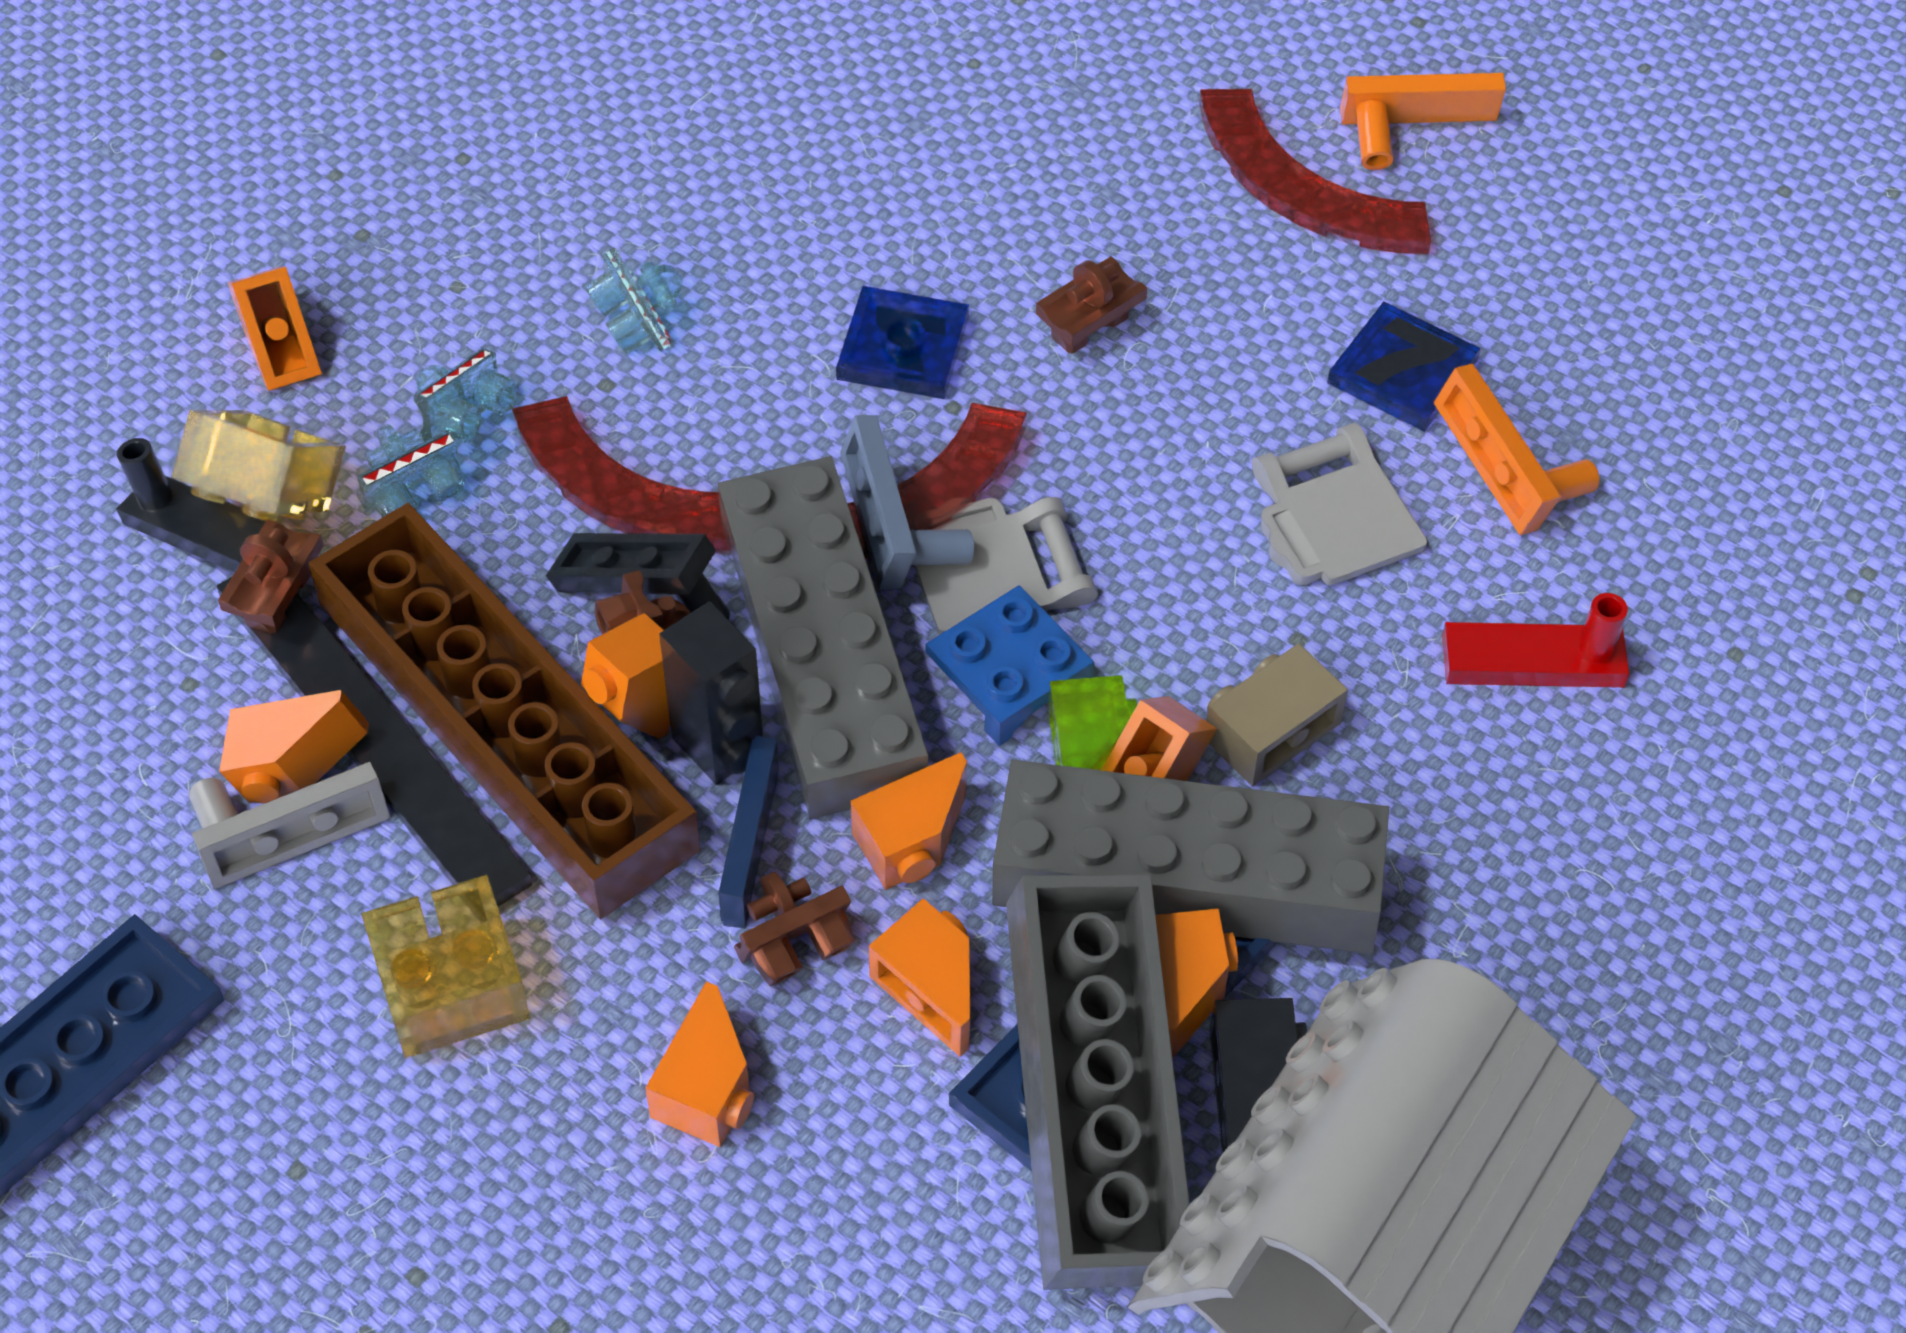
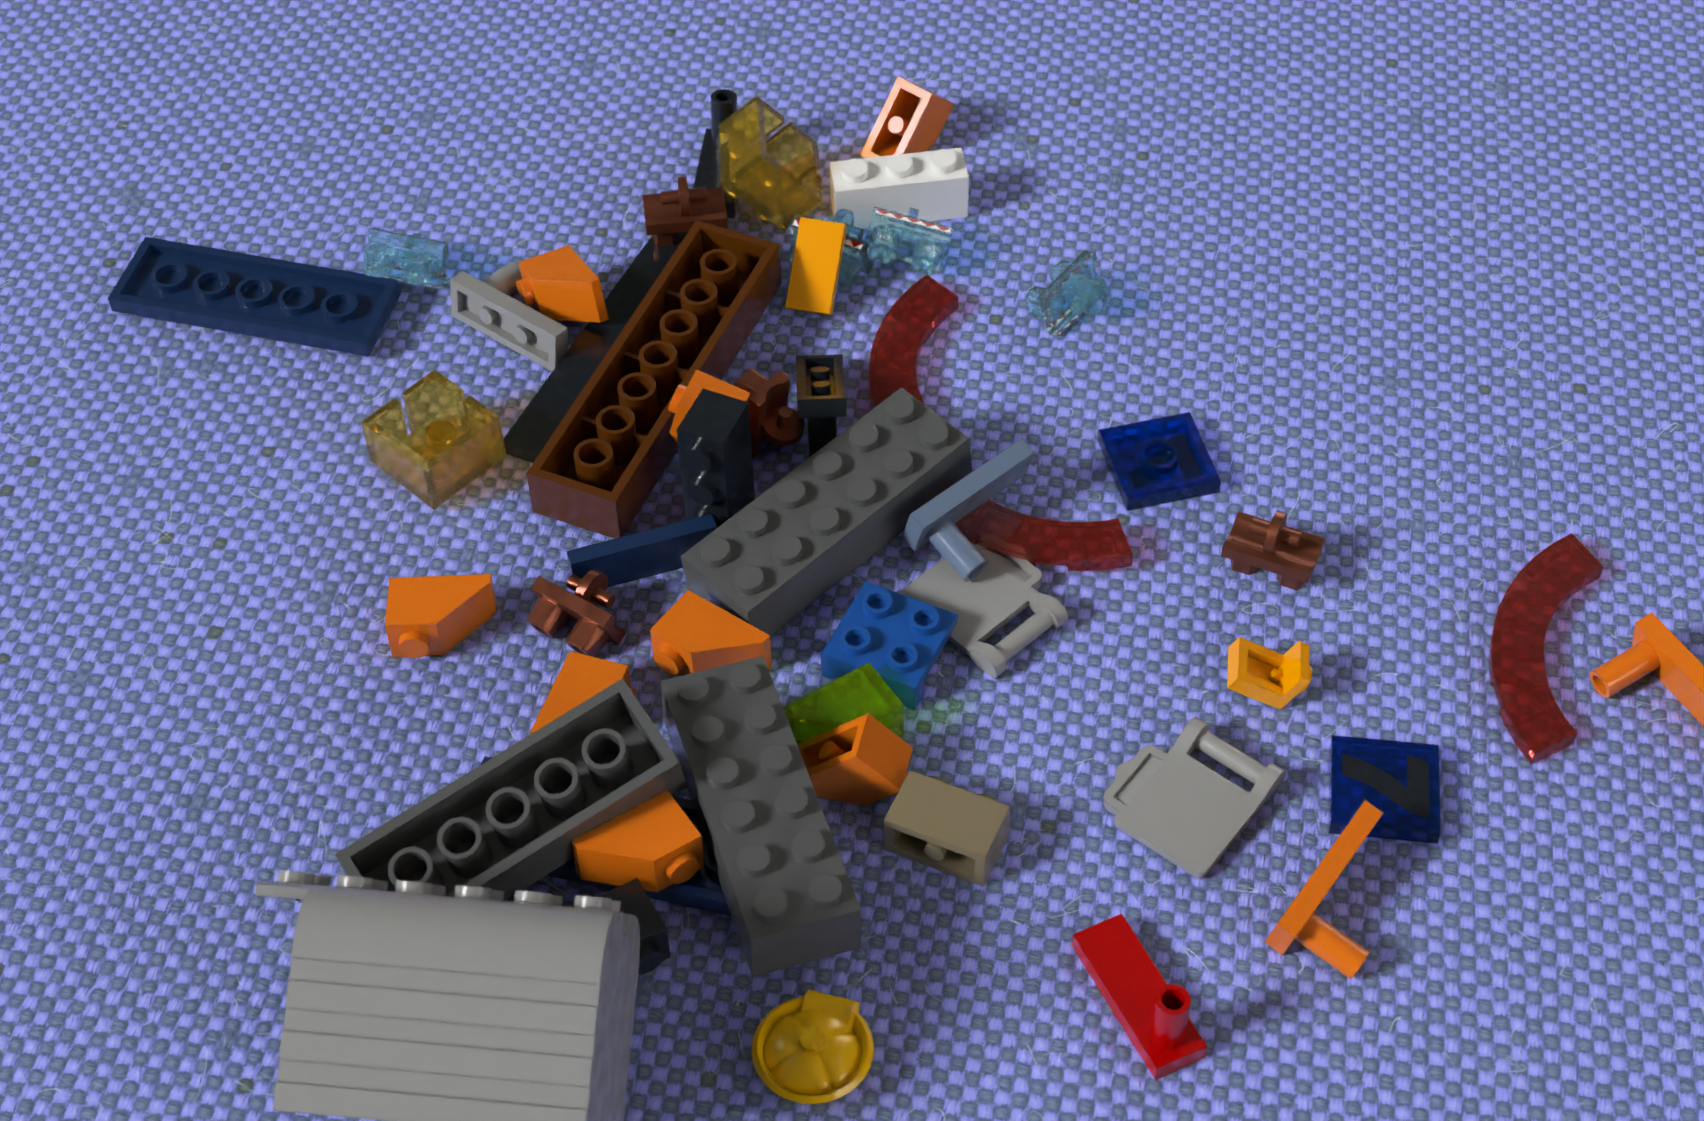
camera: 65 degrees right, 5 degrees down
(105, 890) = (406, 258): none -> clear light blue hips
(371, 370) = (925, 181): none -> white brick
(440, 492) = (816, 266): none -> light orange tile
(1236, 376) = (1268, 674): none -> light orange bracket
(1486, 930) = (813, 1048): none -> yellow piece

